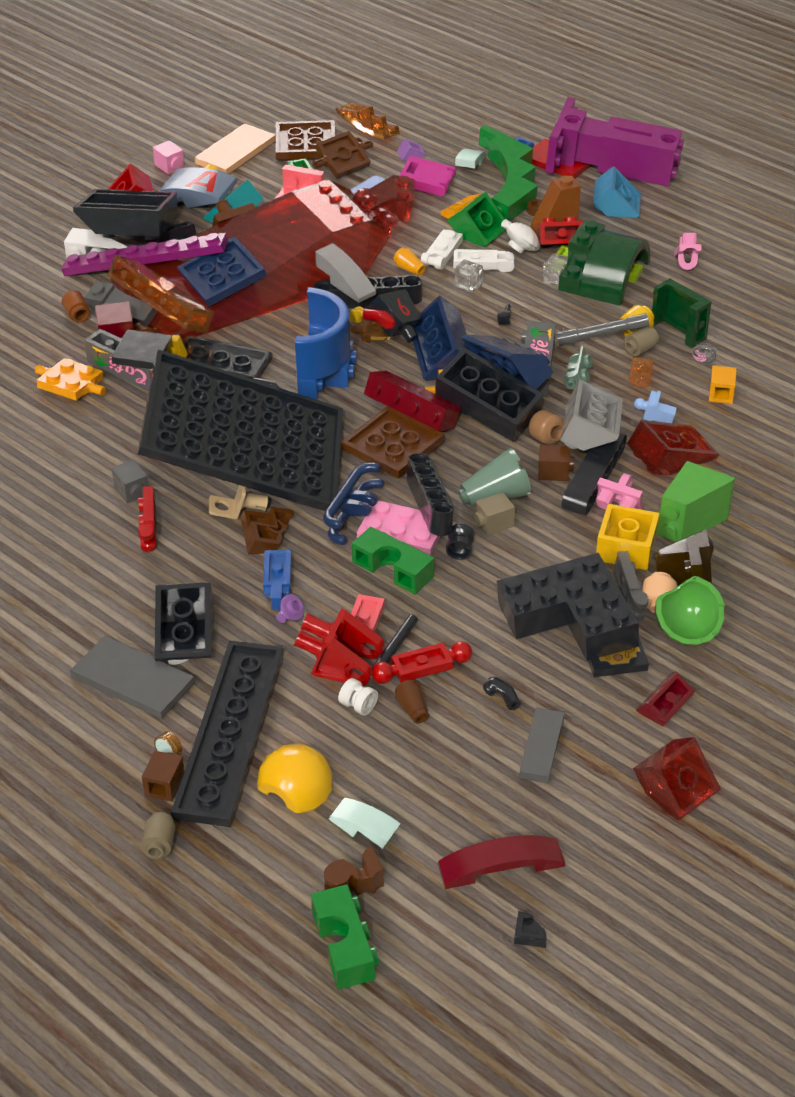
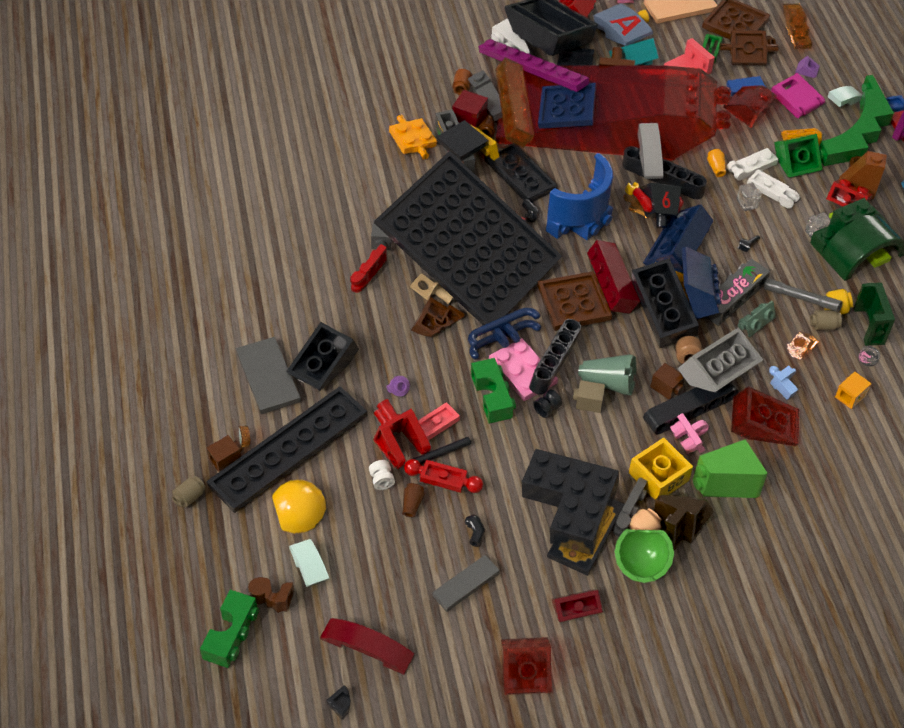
camera: 35 degrees right, 10 degrees up
(277, 576) = (411, 356): blue hinge -> none
(521, 236) = (816, 184): white animal -> none

